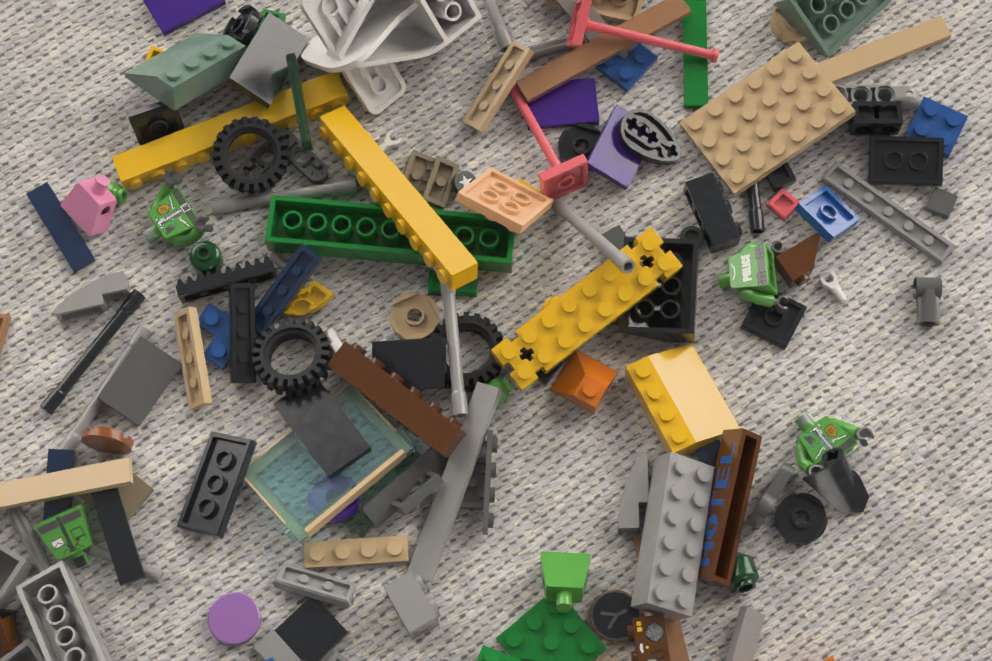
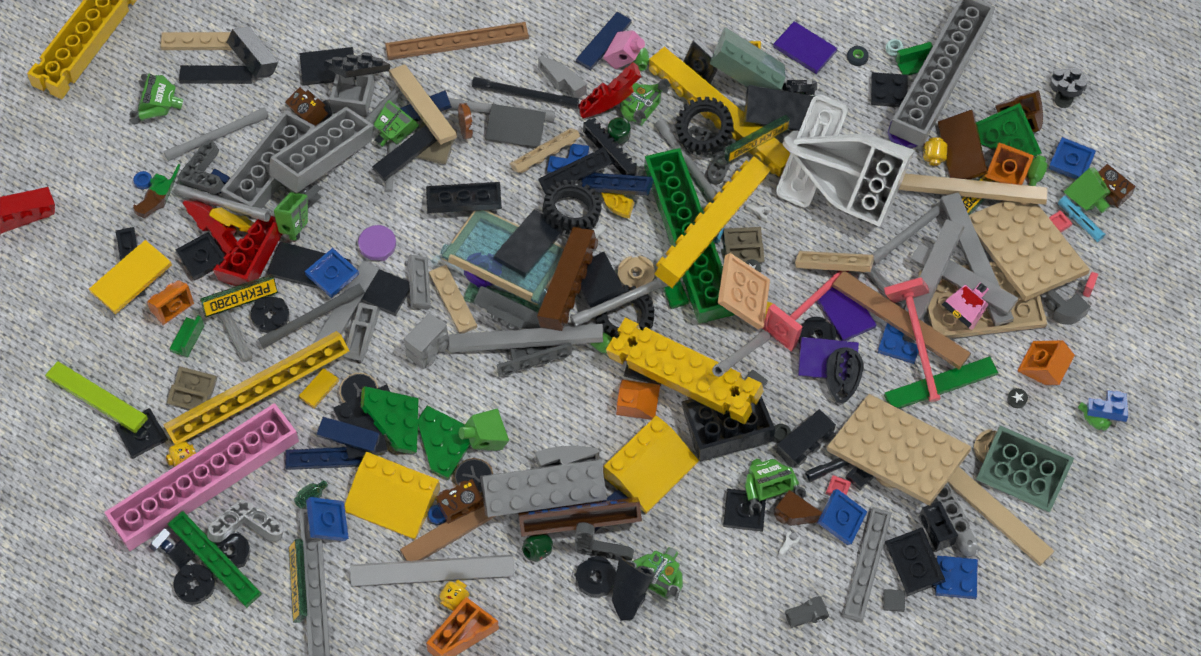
camera: 65 degrees right, 10 degrees down
(153, 247) = (608, 96): none -> red slope

